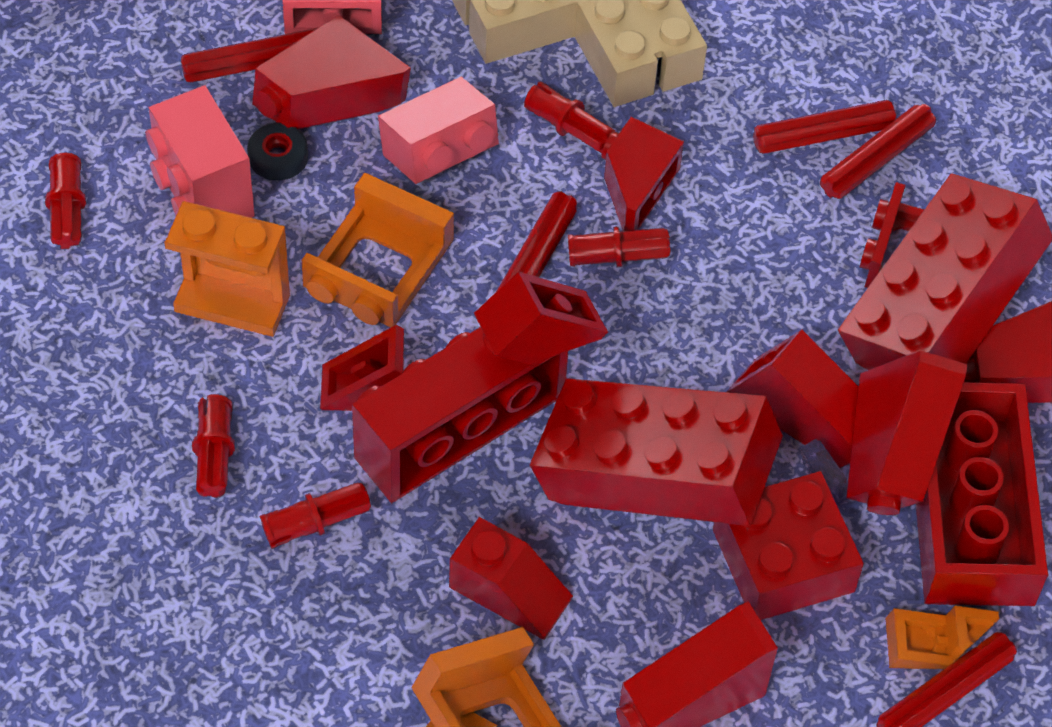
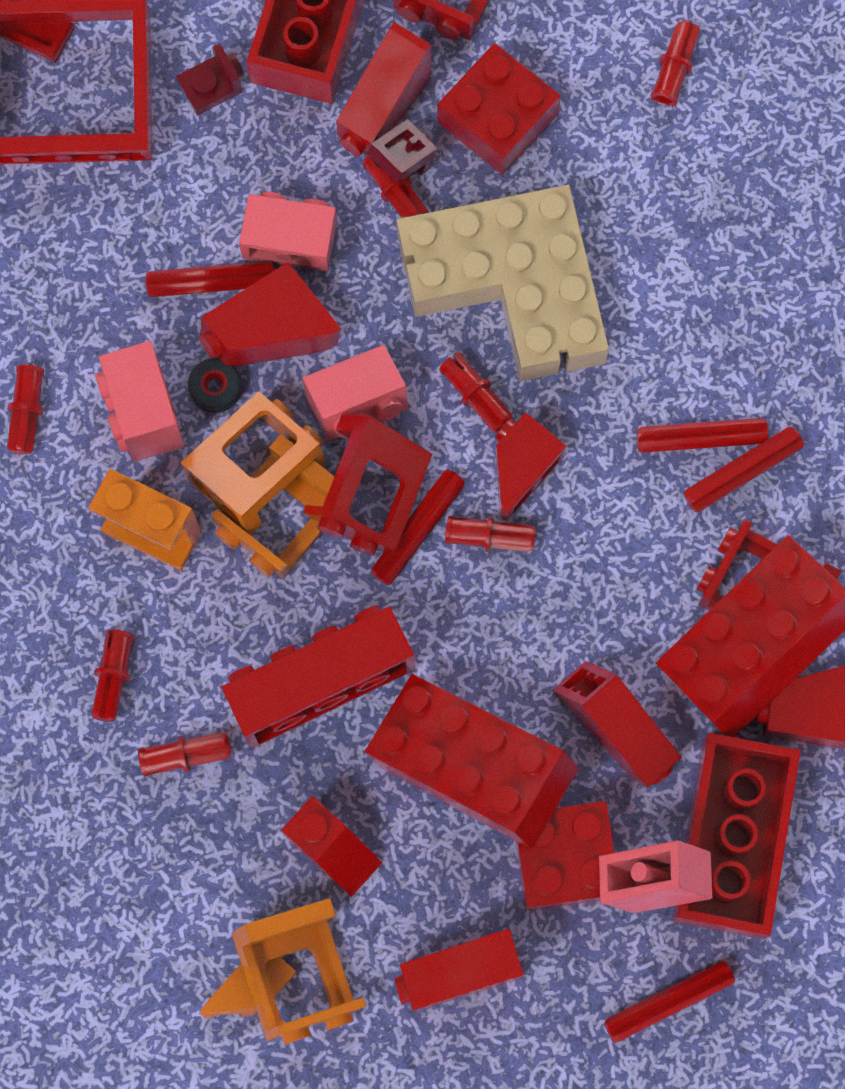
camera: 15 degrees right, 20 degrees up
(331, 230) = (228, 485): none -> orange window
(361, 368) = (248, 630): red slope -> none
(476, 160) = (389, 449): none -> red window
(538, 319) = (389, 641): red slope -> none
(816, 459) = (615, 791): clear purple tile -> none
(901, 429) = (679, 782): red slope -> none
(902, 523) = (655, 877): none -> coral brick
(932, 639) = (671, 954): orange slope -> none

